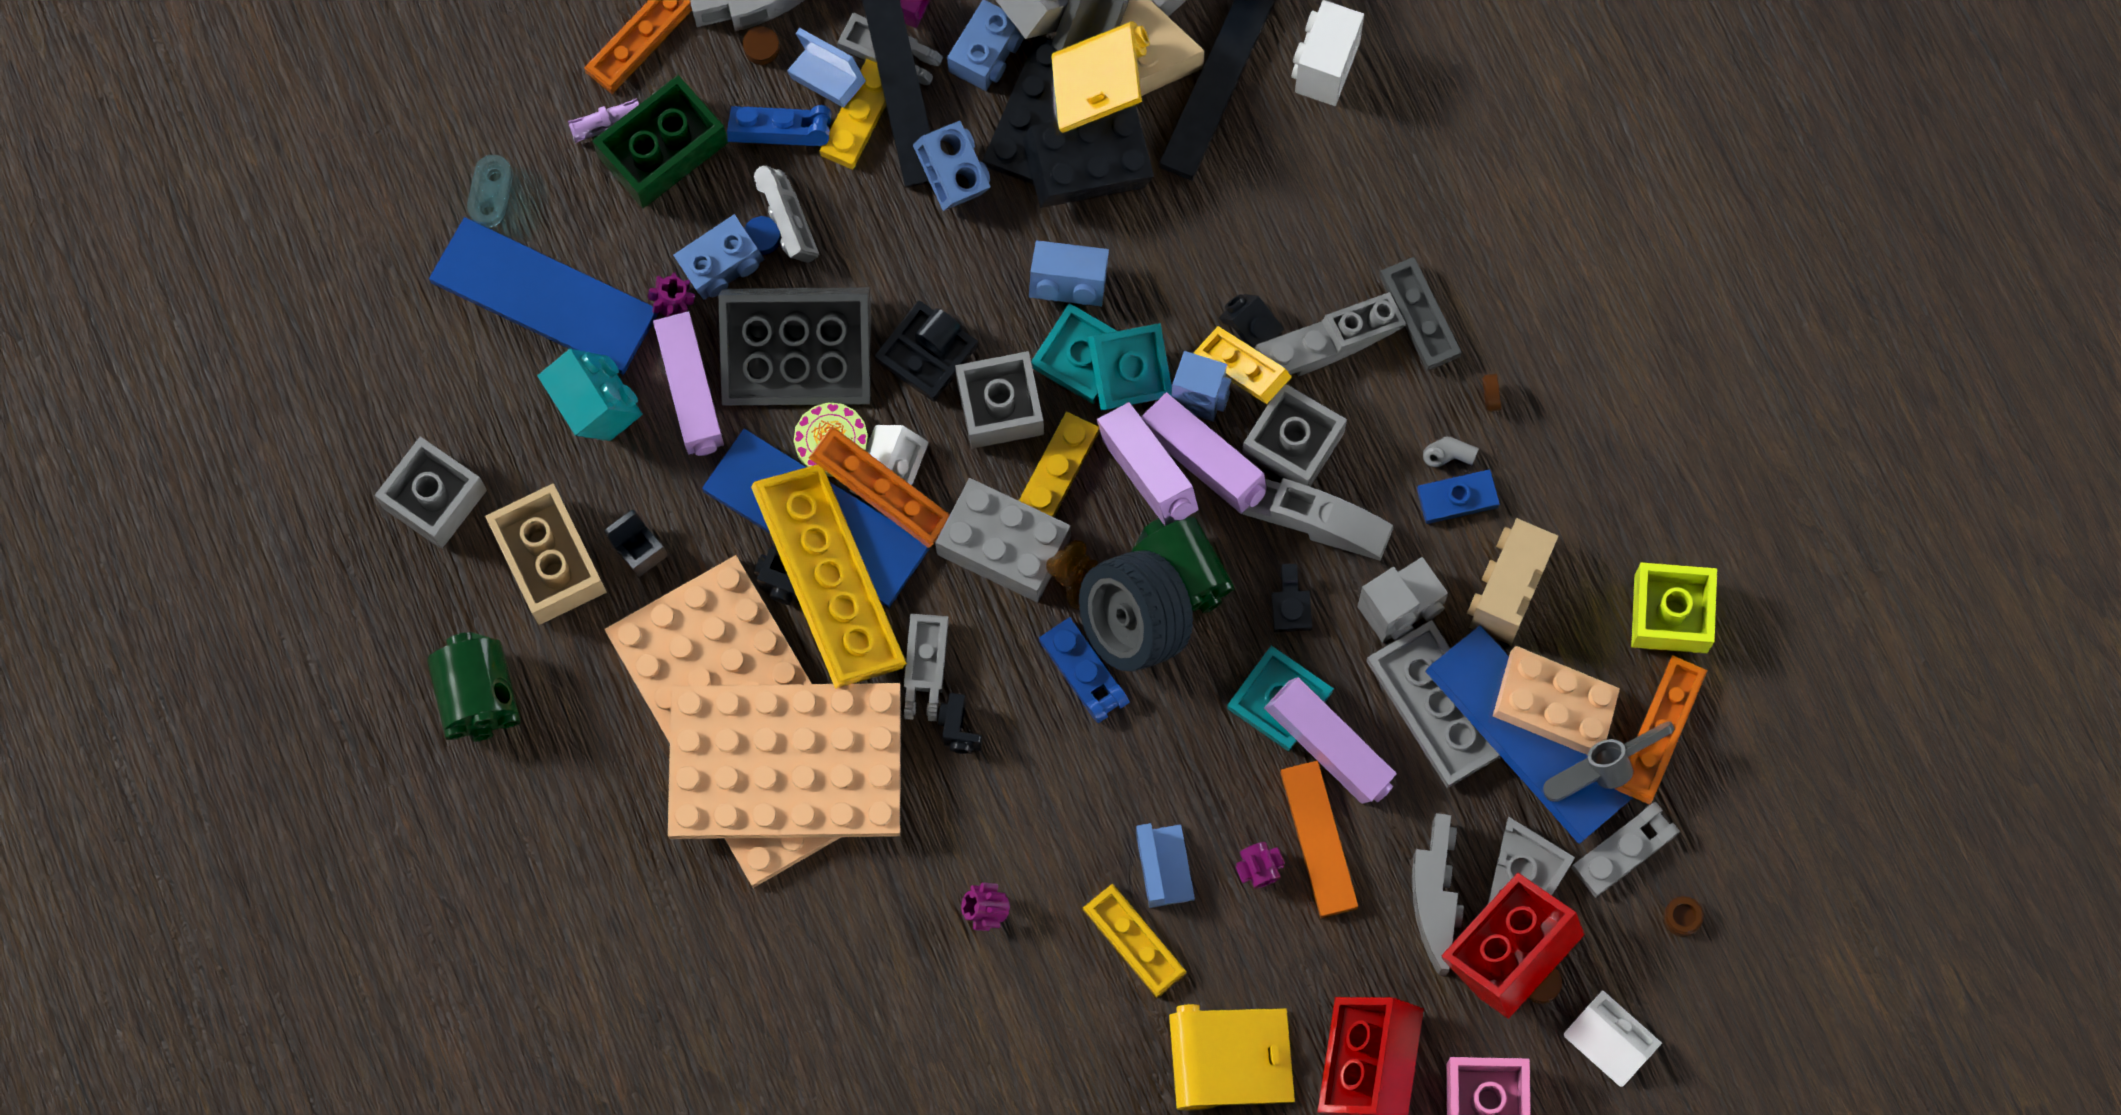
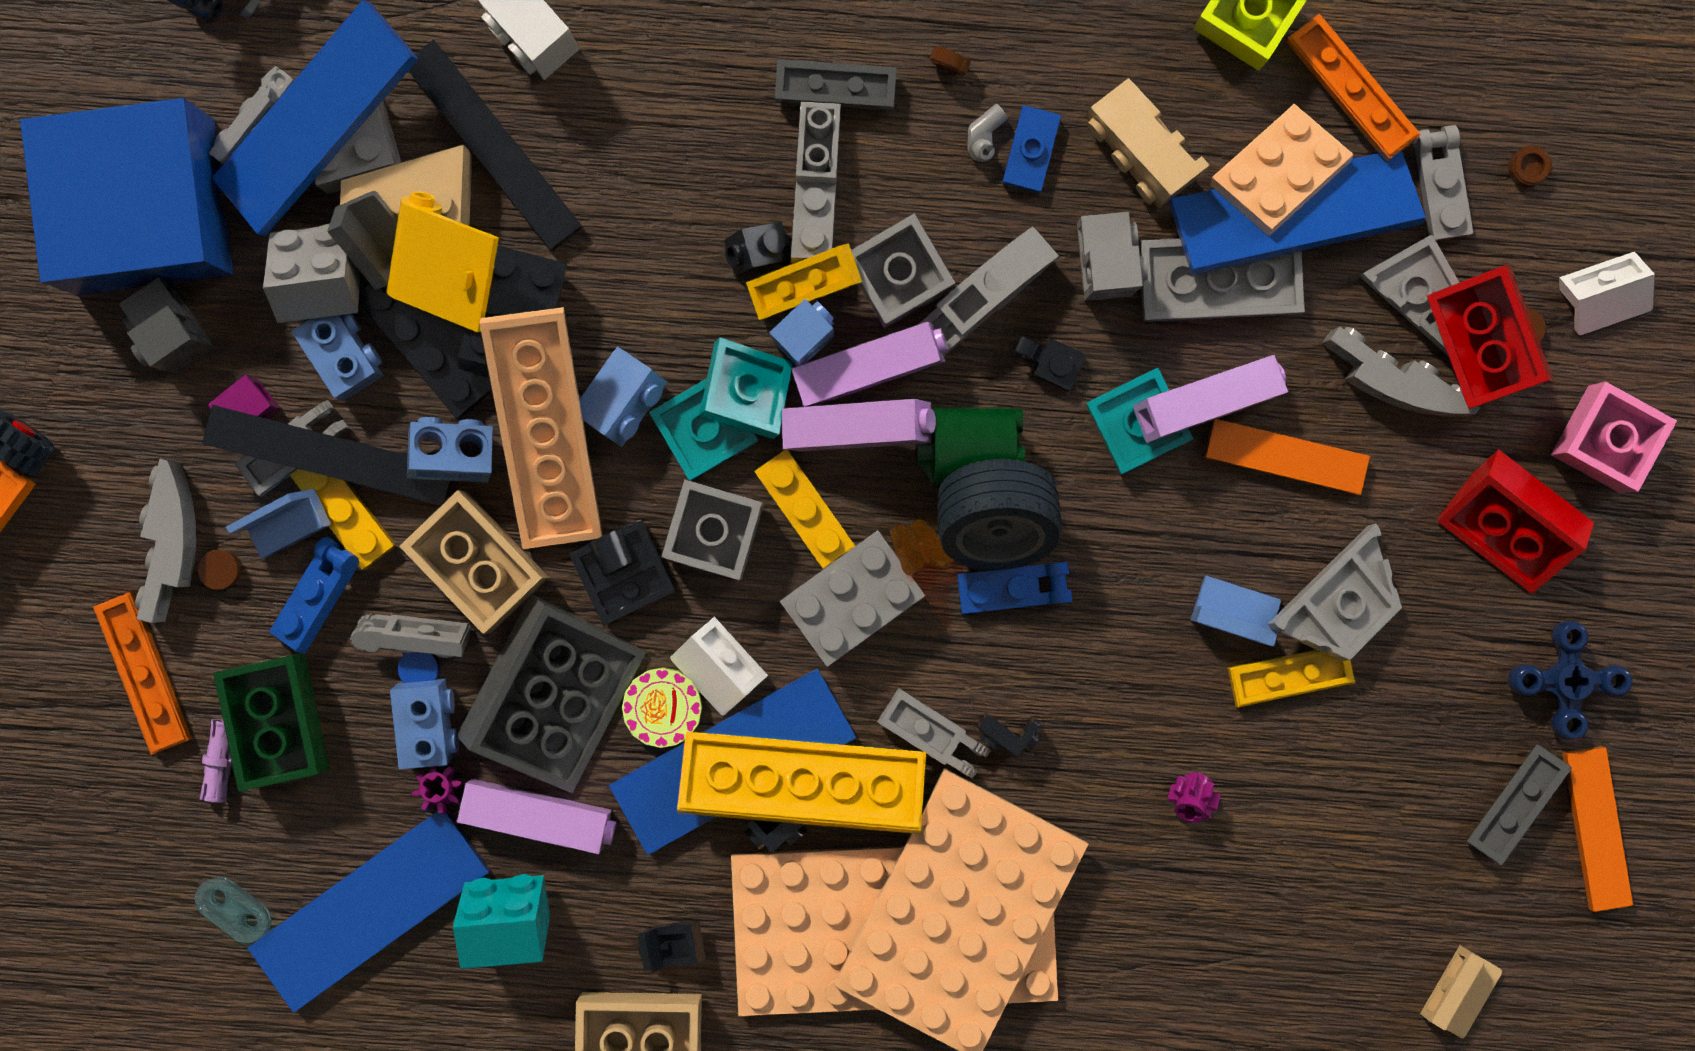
camera: 60 degrees left, 15 degrees up
(872, 229) = (474, 561): none -> tan brick
(880, 486) = (742, 690): orange tile -> none
(1009, 220) = (541, 427): none -> light nougat plate
(1220, 945) = (1344, 601): none -> light grey wing
(1225, 1057) = (1444, 651): yellow door -> none
(1260, 865) = (1287, 525): magenta gear -> none
(1606, 764) = (1370, 178): dark grey piece -> none

